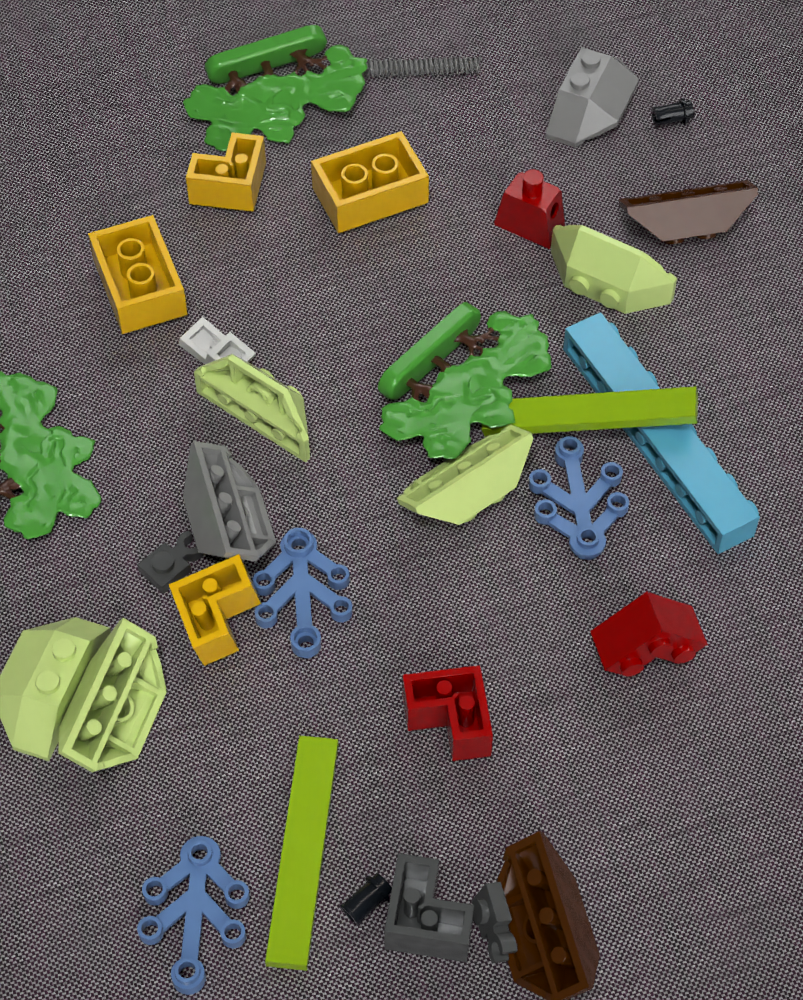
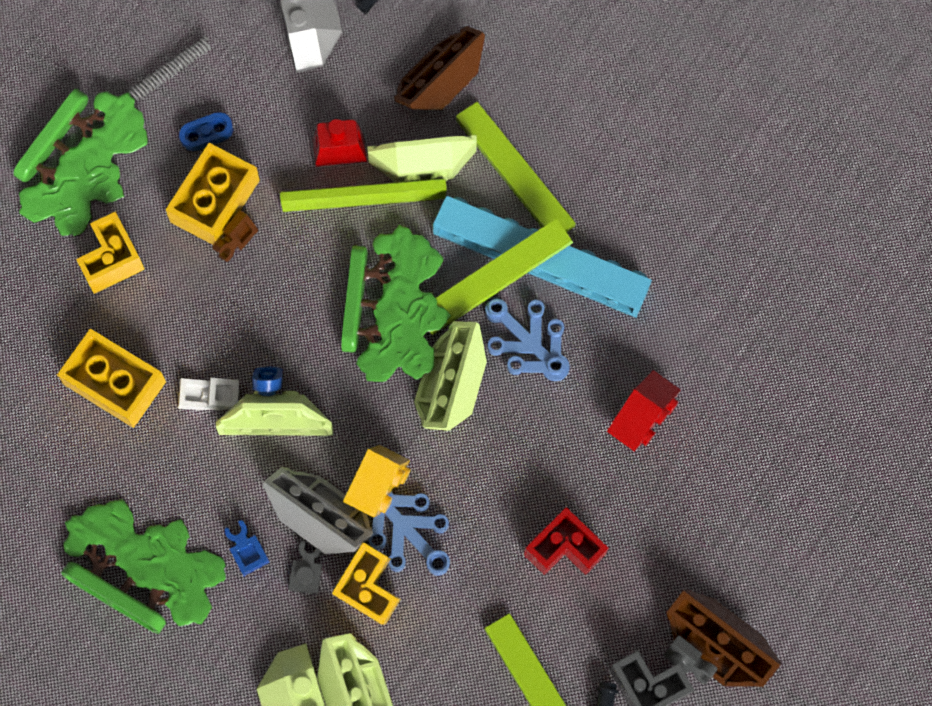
camera: 40 degrees left, 15 degrees up
(128, 506) = (247, 552): none -> blue plate
(279, 364) = (267, 380): none -> blue plate
(305, 511) = (375, 479): none -> yellow brick
(366, 230) = (237, 235): none -> reddish brown plate
(421, 133) = (205, 130): none -> blue plate
(517, 269) = (363, 195): none -> lime tile
(696, 337) = (513, 167): none -> lime tile

